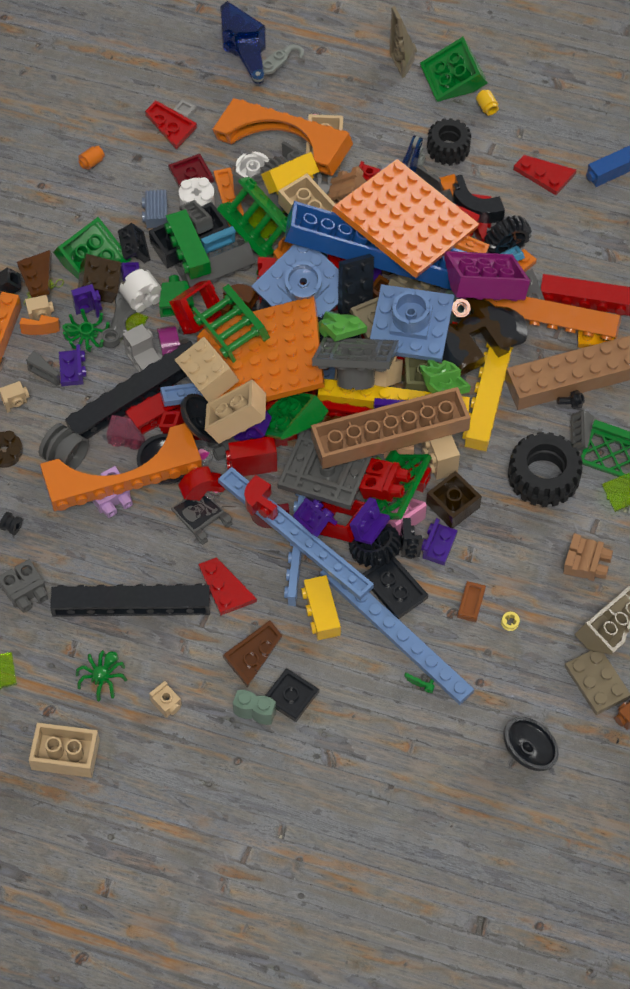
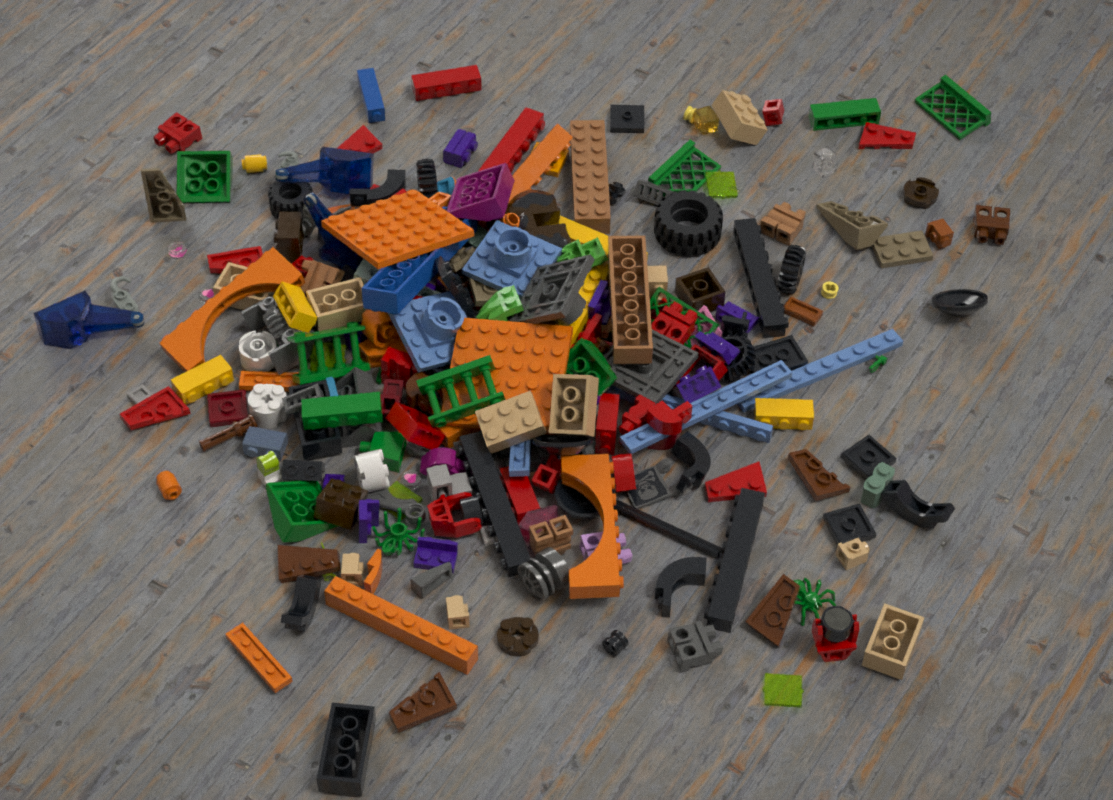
camera: 75 degrees left, 10 degrees down
(52, 692) = (838, 627): none -> piece
(75, 642) = (774, 610): none -> reddish brown wing
(92, 552) = (678, 574): none -> black arch
(101, 440) = (551, 536): none -> medium nougat hips
(120, 367) = (442, 520): none -> red piece
(124, 216) = (268, 468): none -> lime leg
(152, 323) = (411, 479): none -> clear tile
(153, 537) = (667, 529): none -> black axle
(166, 184) = (237, 429): none -> reddish brown pin
(200, 692) = (849, 524): none -> black plate
(212, 144) = (202, 380): none -> yellow brick
(222, 278) = (391, 393): none -> dark red brick
(230, 545) = (696, 459): none -> black arch
(236, 743) = (914, 509): none -> black arch
(266, 474) = (637, 415): none -> red hips
(361, 82) = (177, 250): none -> clear tile
(361, 129) = (243, 257): none -> red wing
(392, 148) = (289, 235): none -> dark brown brick
(495, 160) = (335, 170): none -> clear blue slope
(499, 551) = (759, 278): none -> black brick
(501, 34) = (177, 134): none -> red hips
(513, 574) = (791, 269): none -> black gear
(576, 254) = (460, 148): none -> dark purple brick

